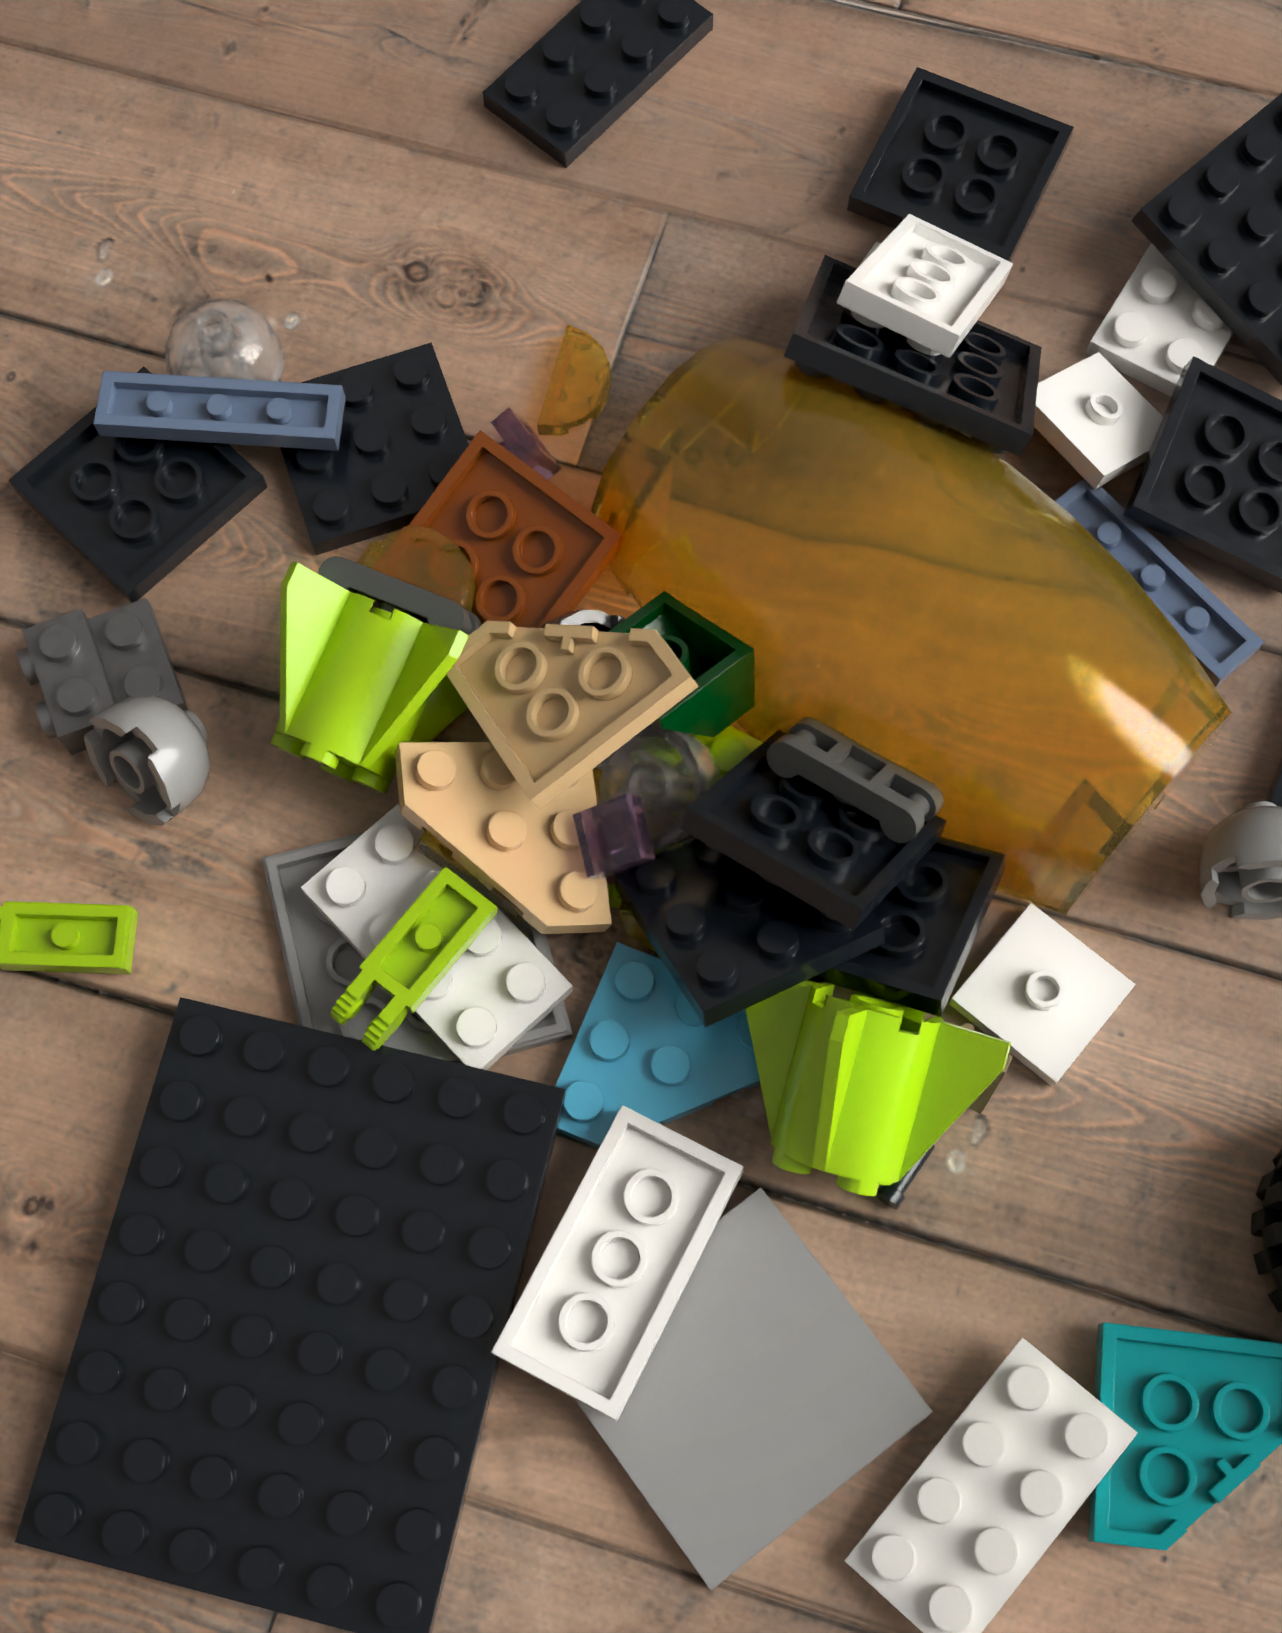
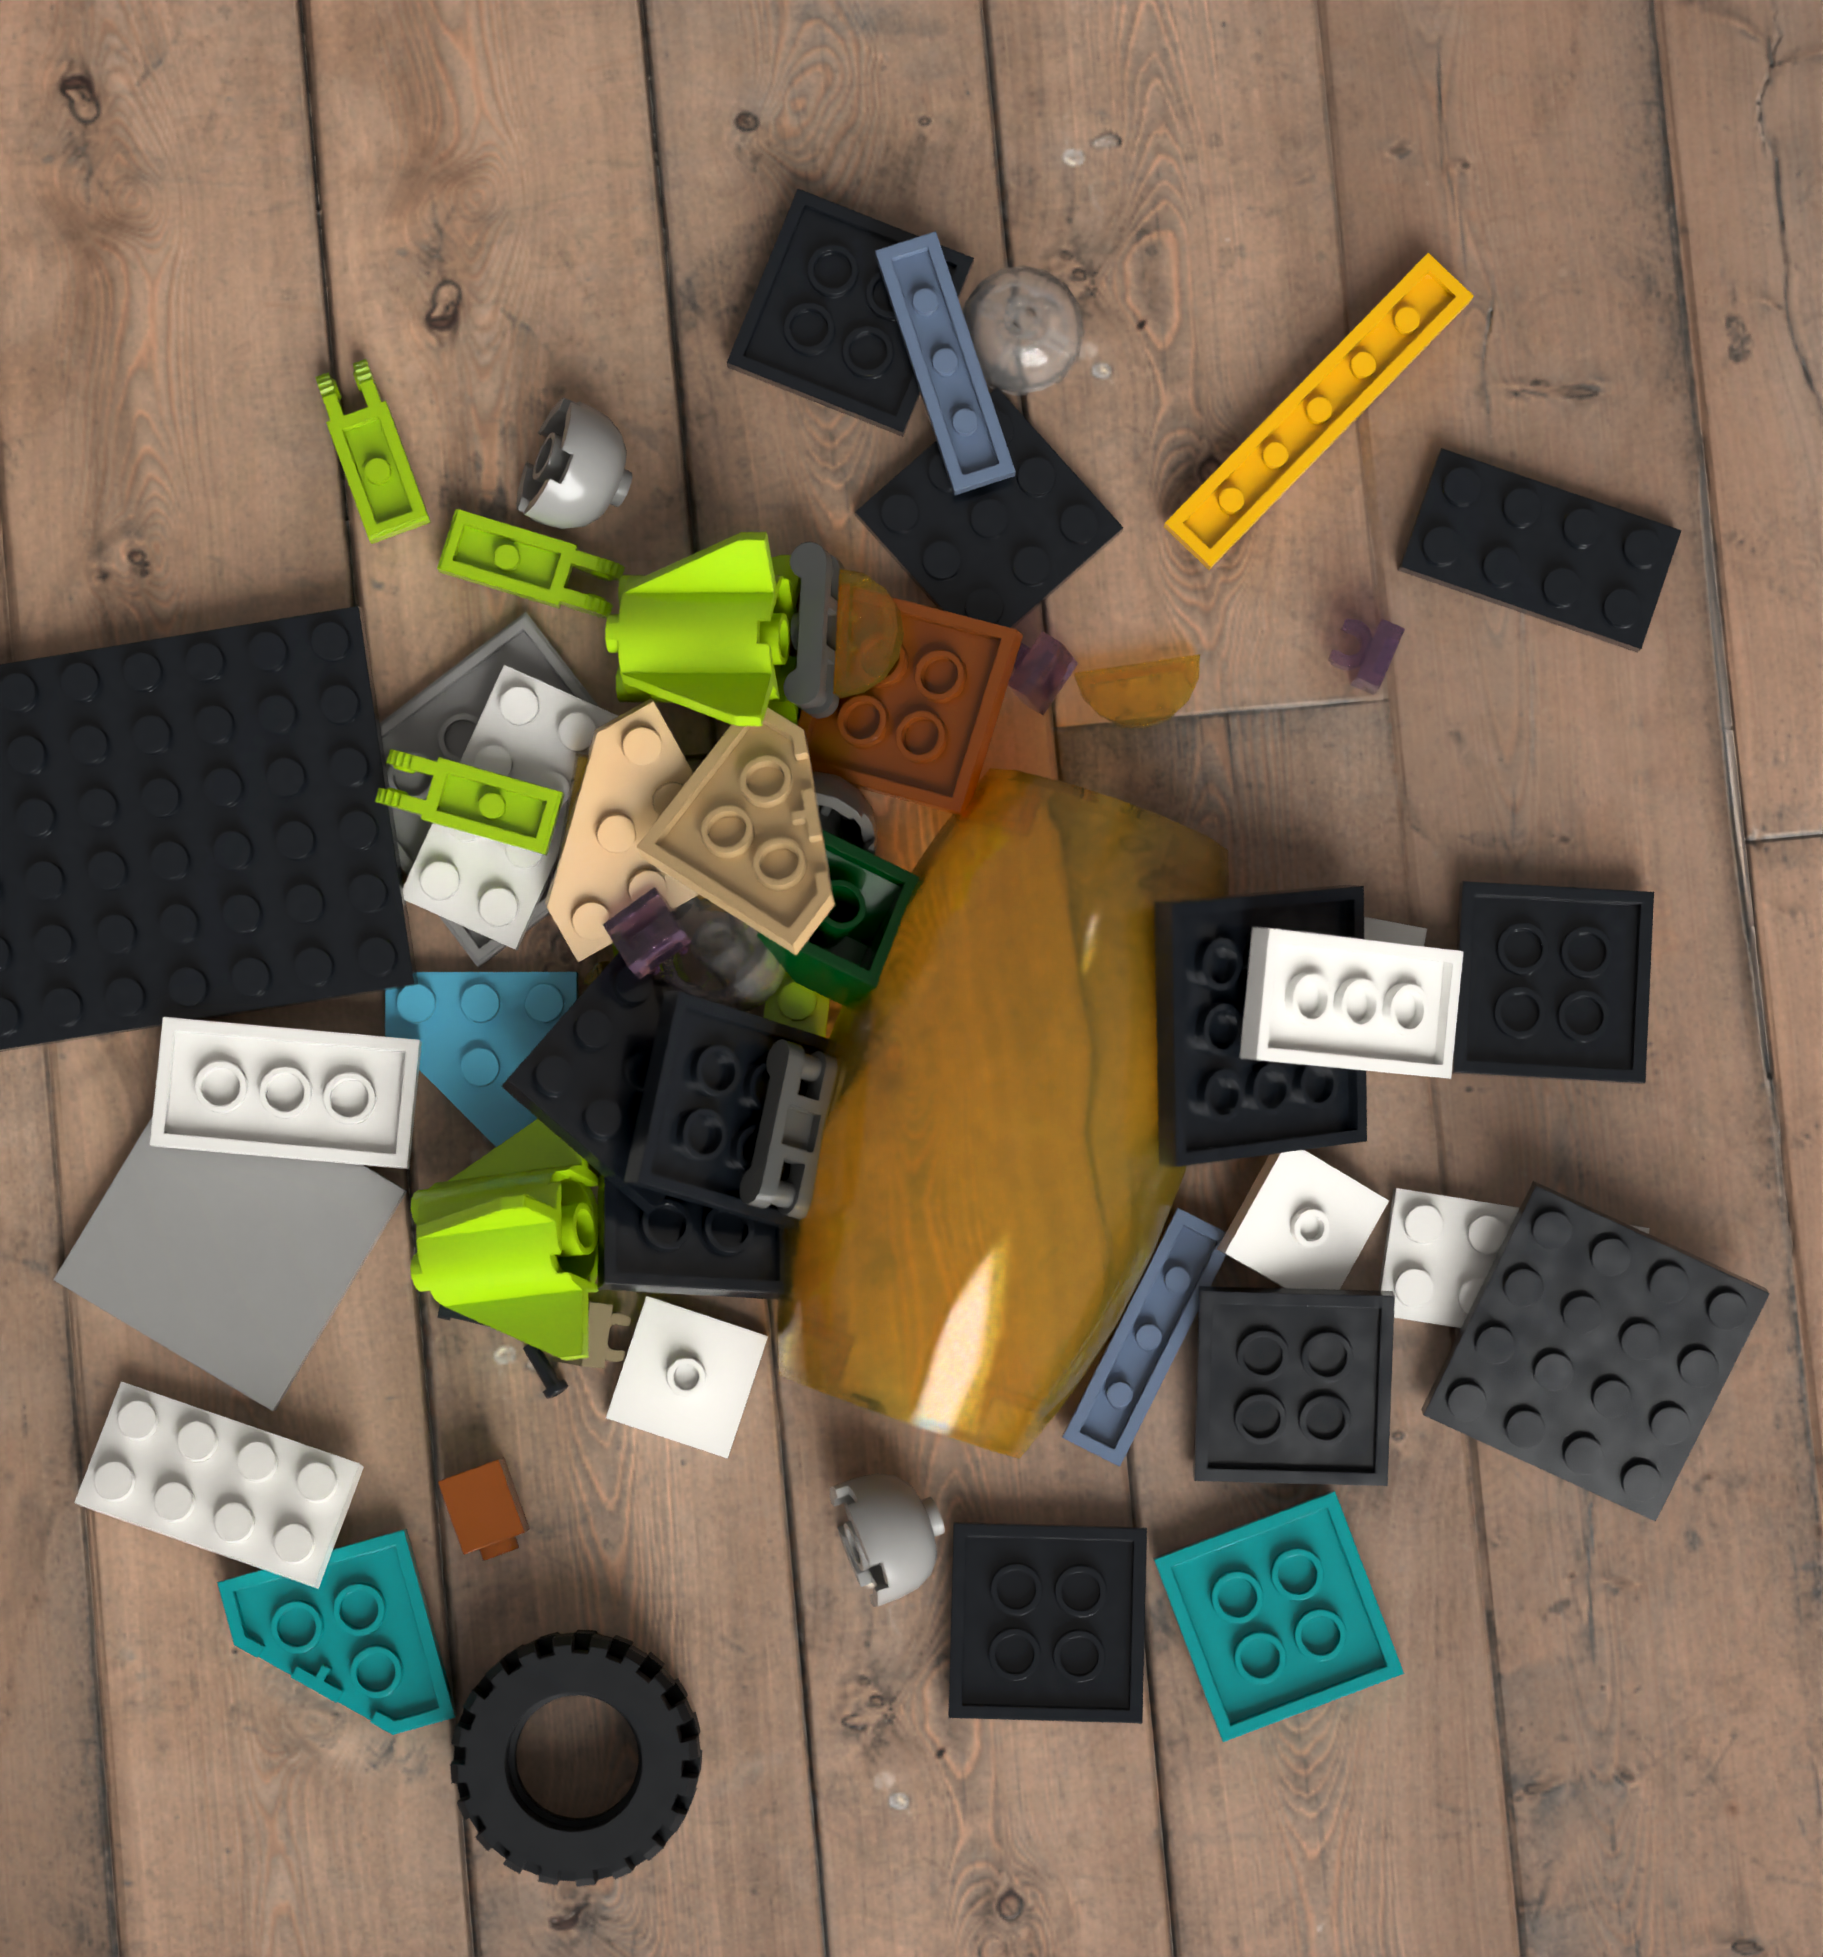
camera: 65 degrees right, 15 degrees up
(95, 664) = (644, 374): flat silver plate -> none
(218, 840) = (523, 563): none -> lime hinge
(410, 170) = (1318, 411): none -> yellow plate
(631, 194) = (1374, 653): none -> clear purple tile
(987, 1126) = (545, 1372): none -> black piece
(1108, 1232) = (485, 1509): none -> dark orange brick

